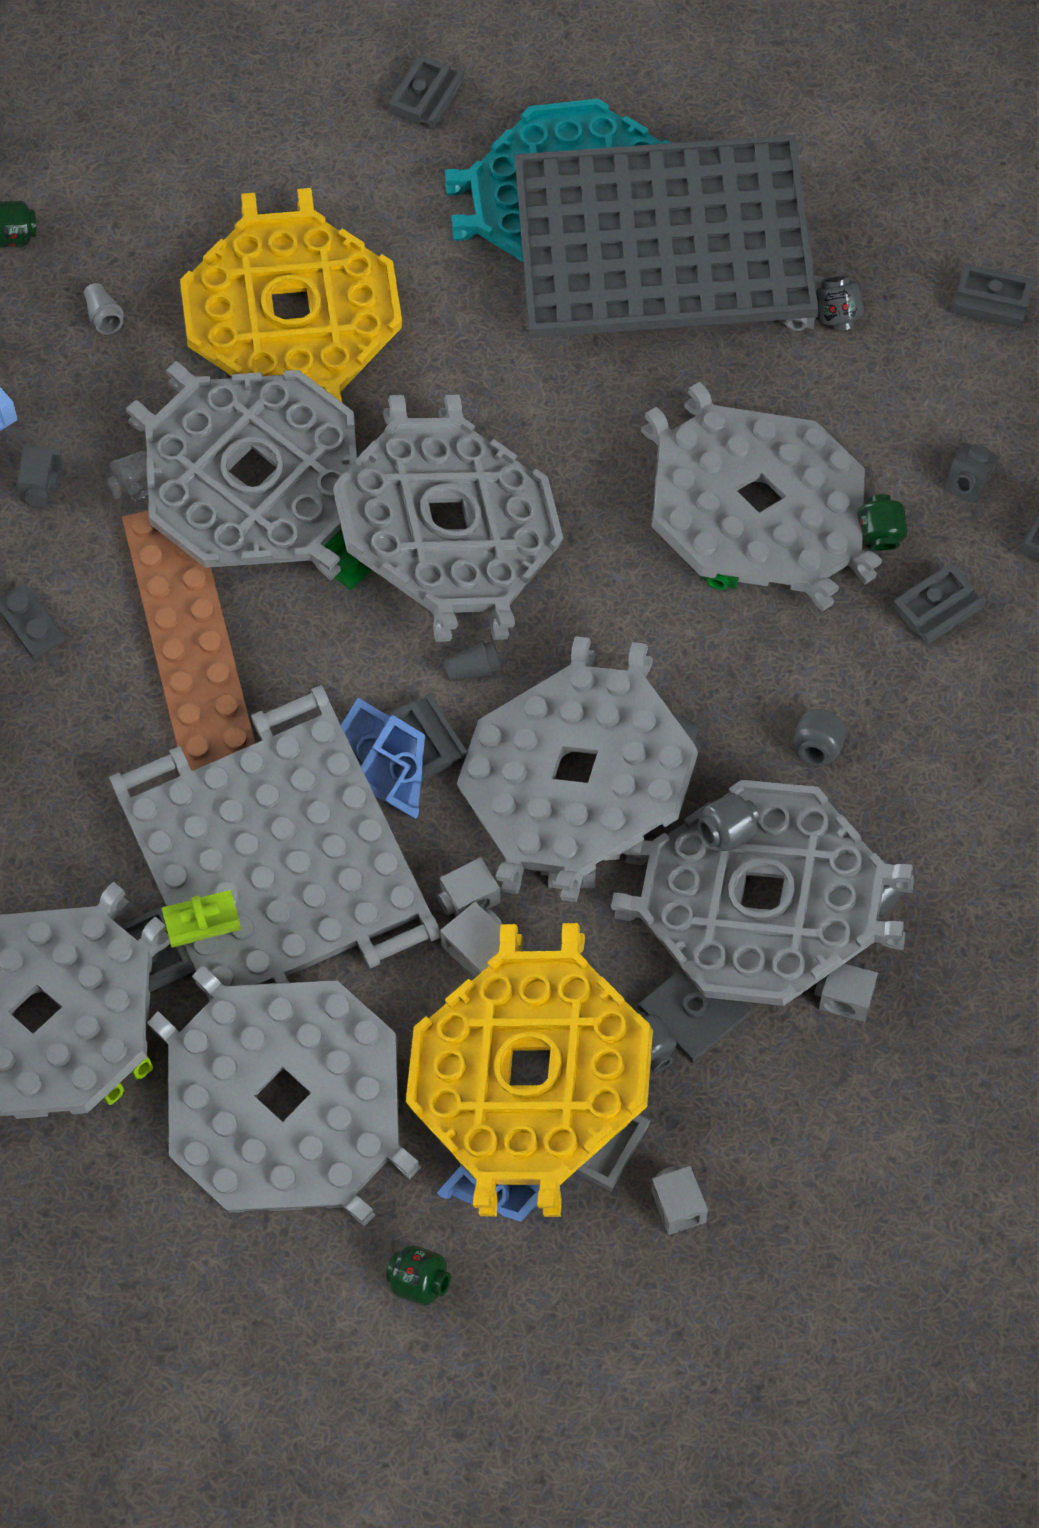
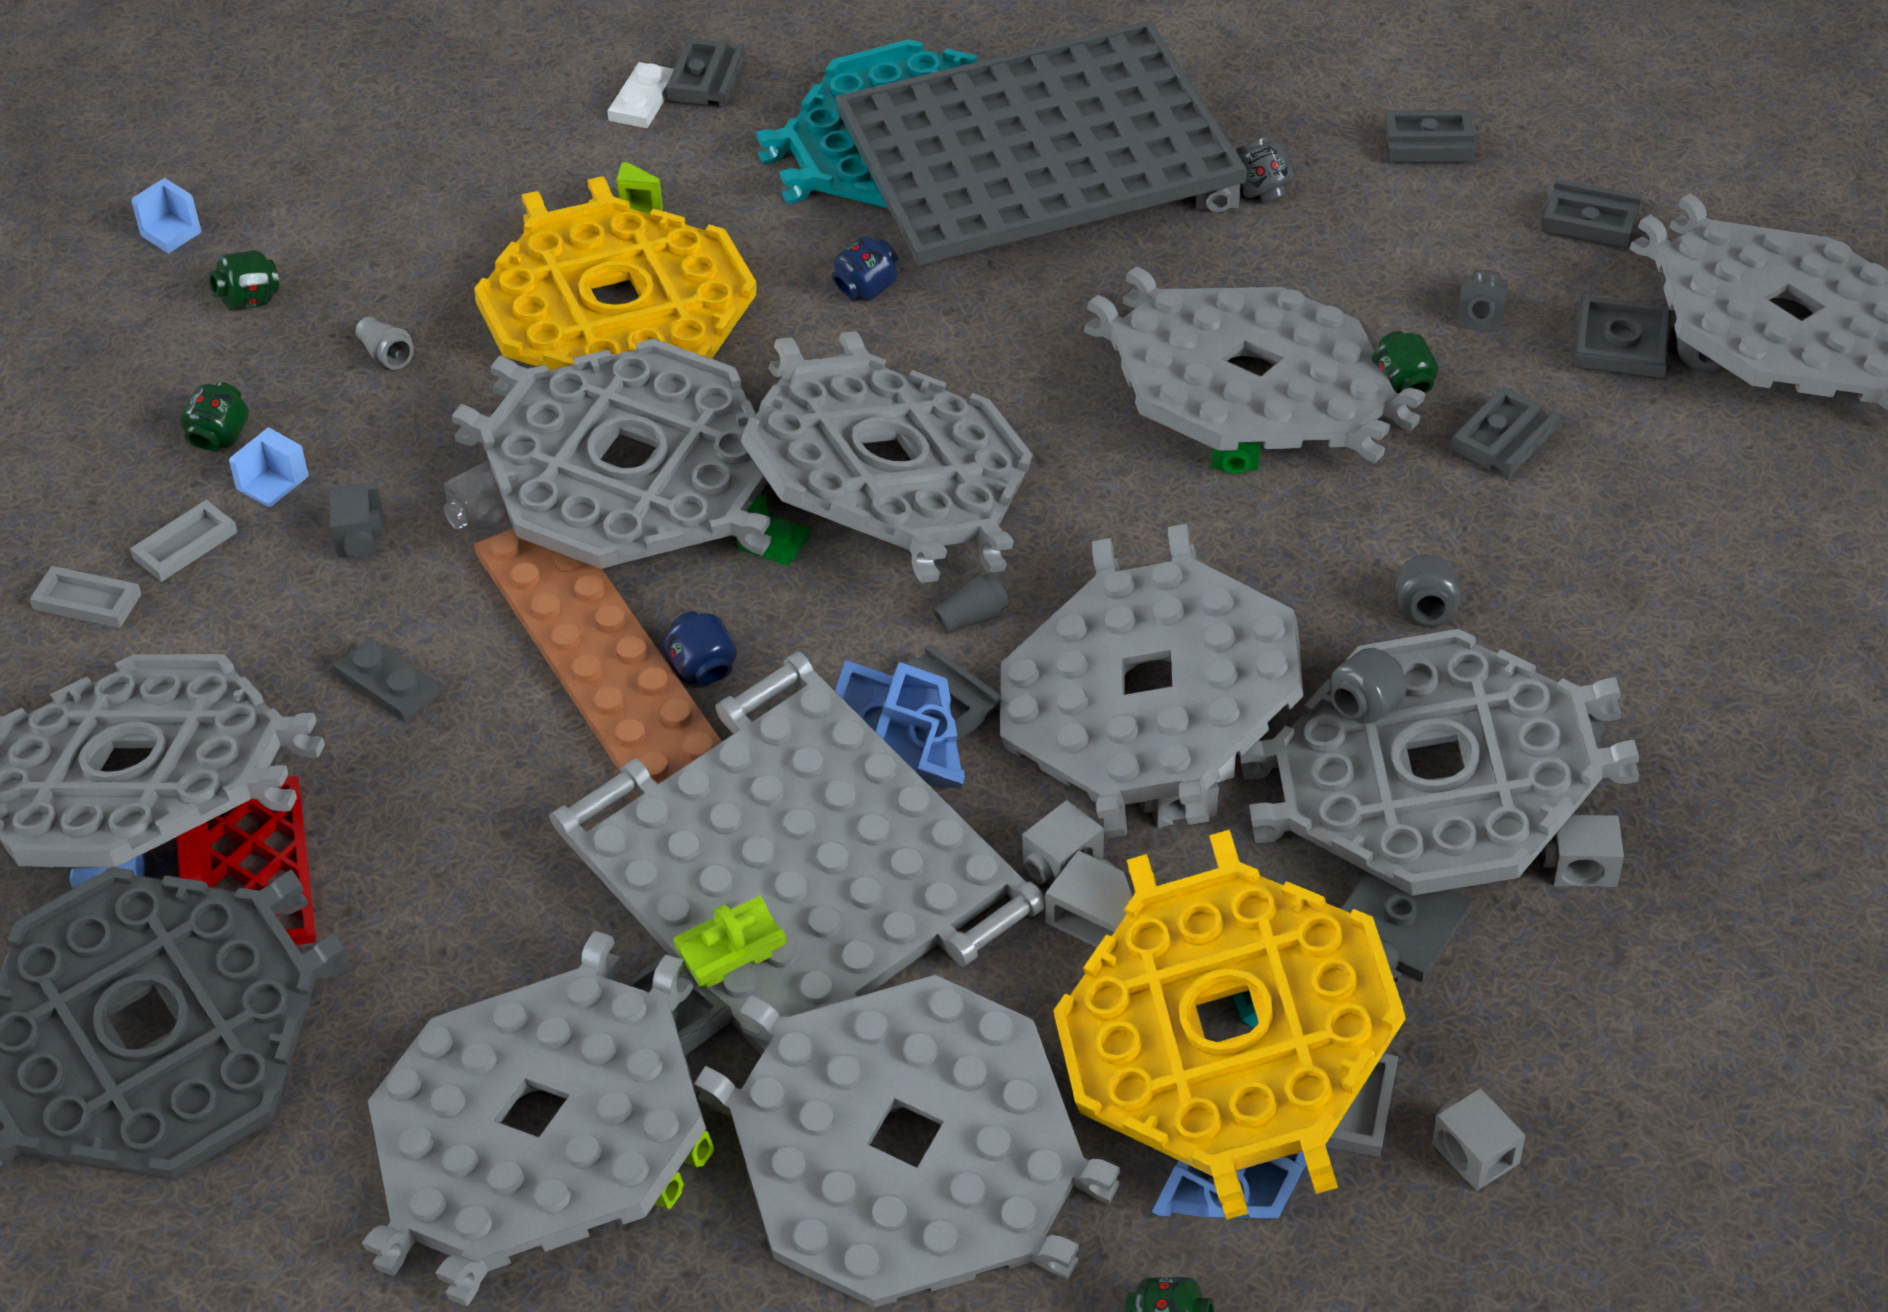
camera: 15 degrees left, 15 degrees down
(260, 654) = (700, 648): none -> dark blue head
(335, 205) = (639, 188): none -> lime slope
(368, 102) = (641, 95): none -> white plate
(491, 327) = (865, 268): none -> dark blue head

